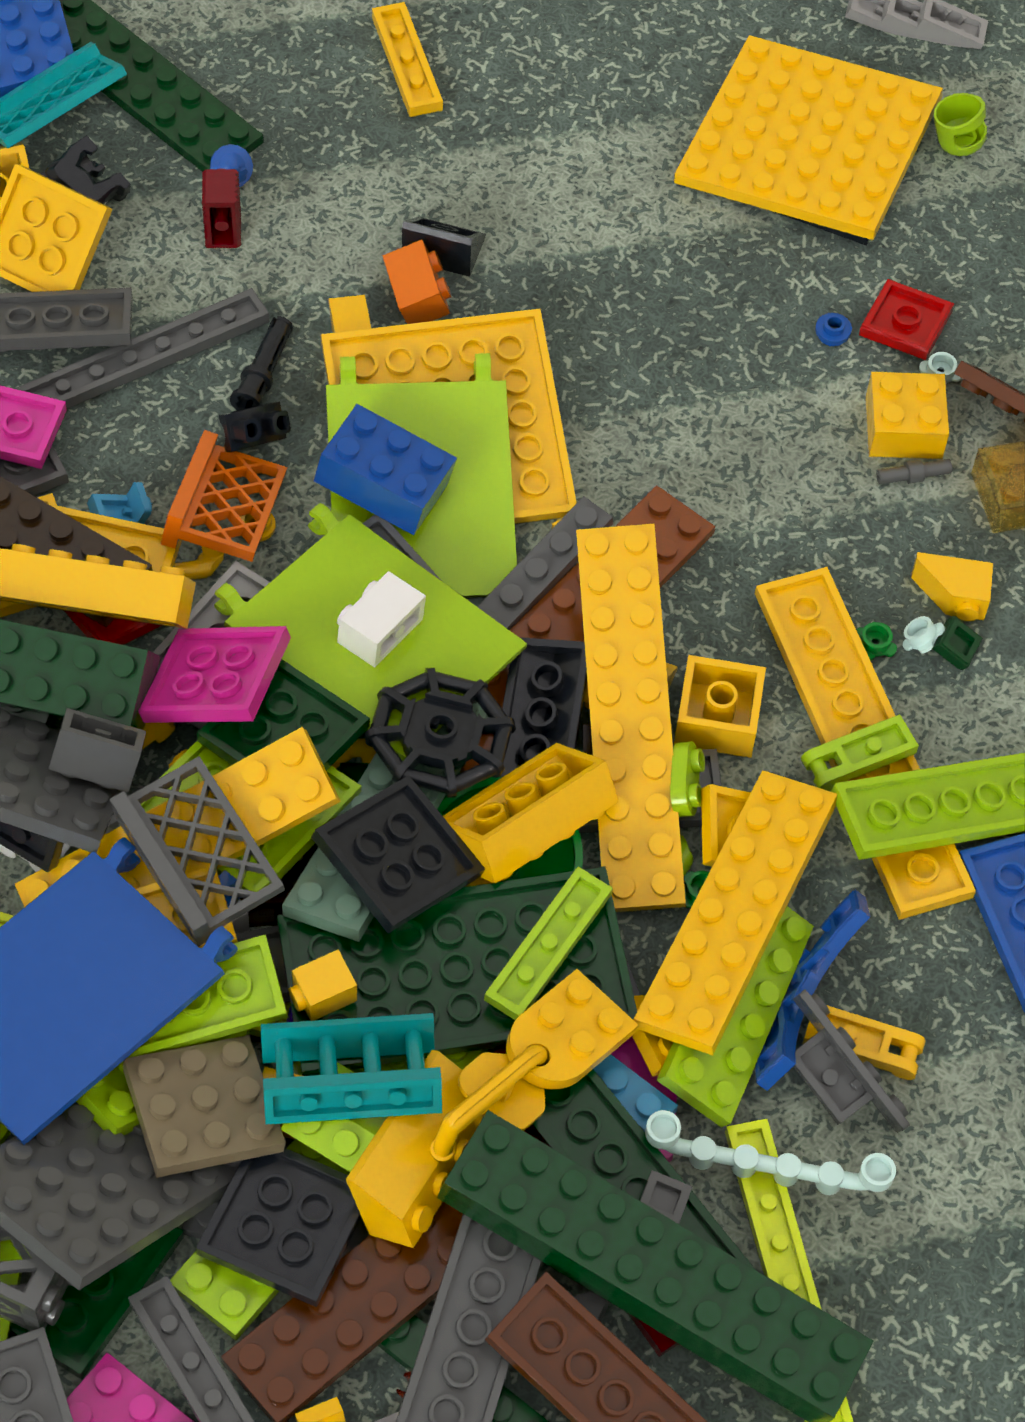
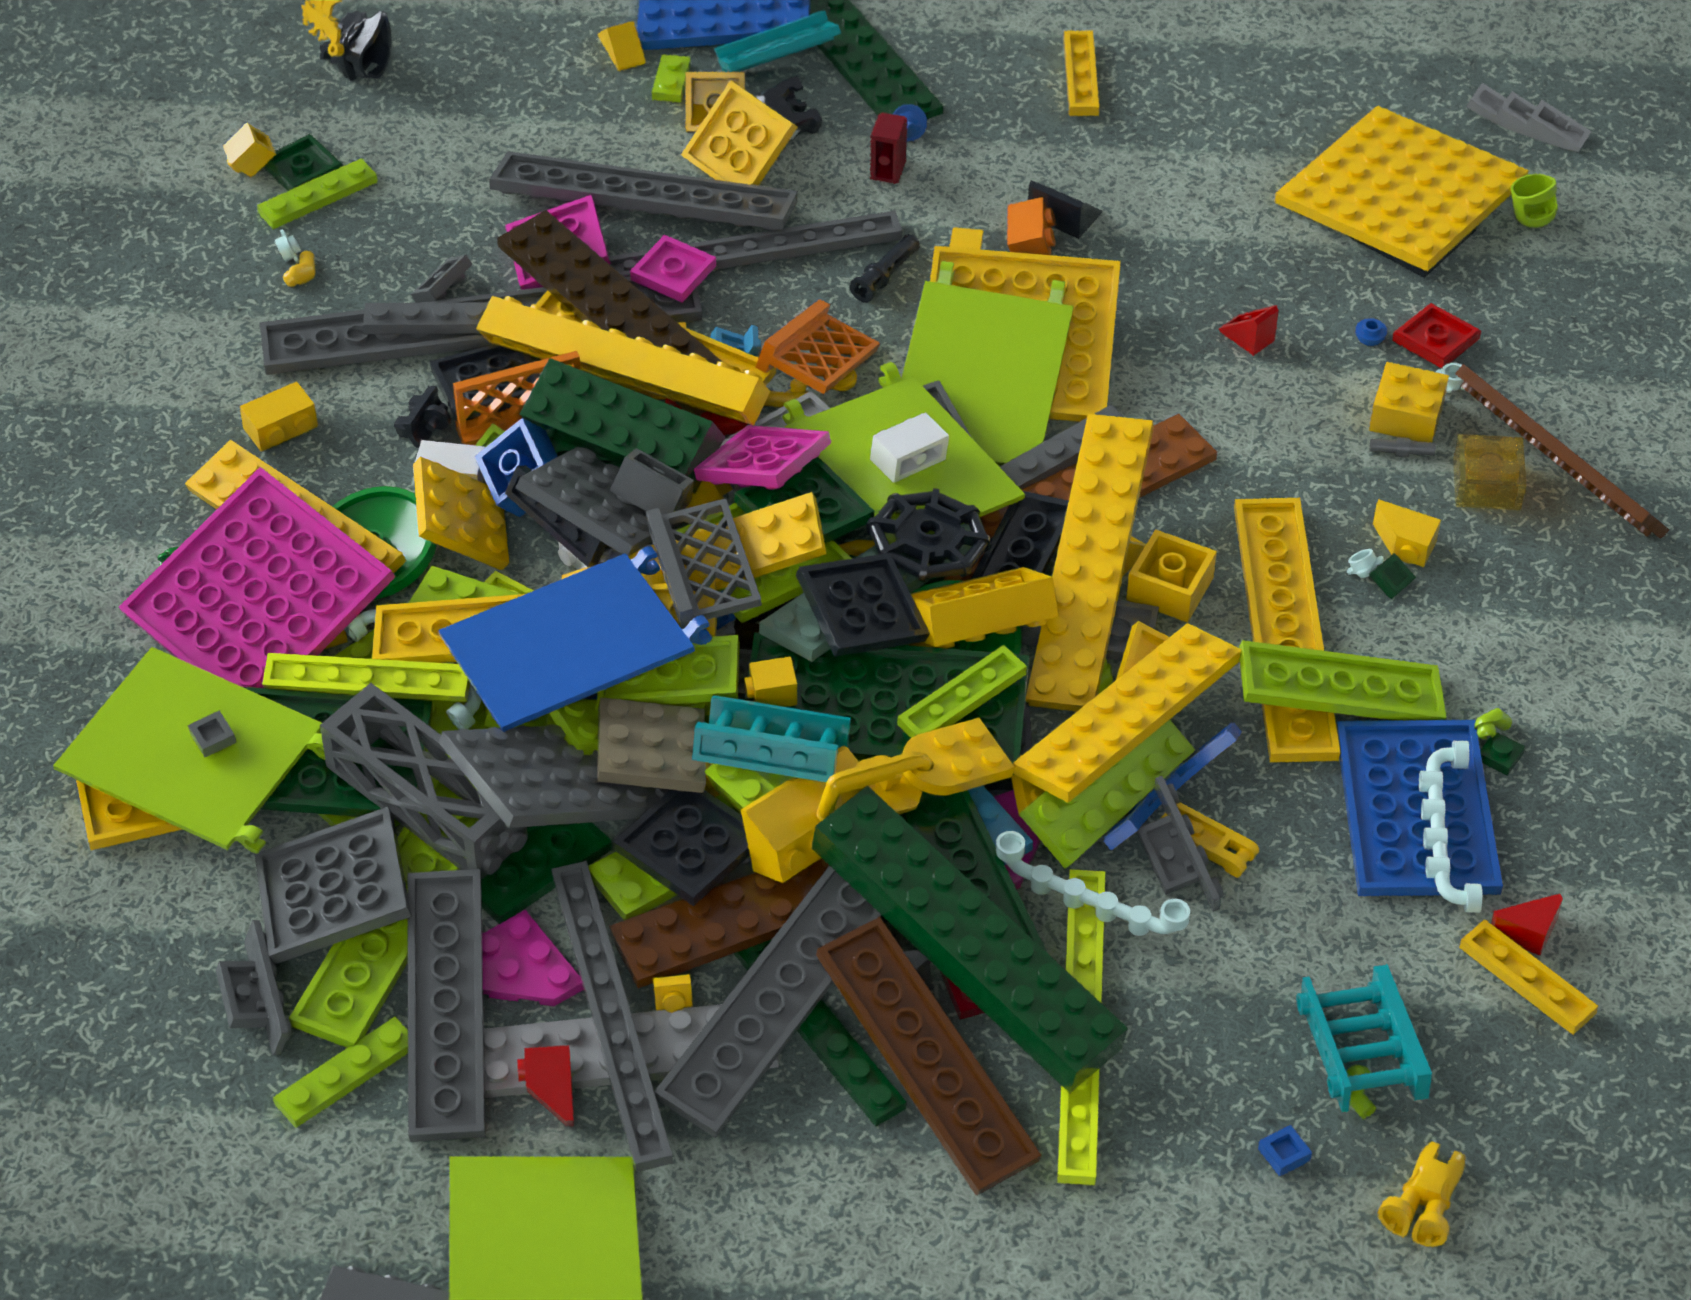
camera: 20 degrees right, 10 degrees down
(254, 426) = (861, 306): black hips -> none
(384, 469) = (951, 347): blue brick -> none
(666, 1195) = (998, 890): dark grey plate -> none
(685, 772) = (1122, 616): lime plate -> none
(702, 355) = (1253, 329): none -> red slope
(860, 752) = (1282, 628): lime plate -> none
(881, 633) = (1324, 560): green plate -> none

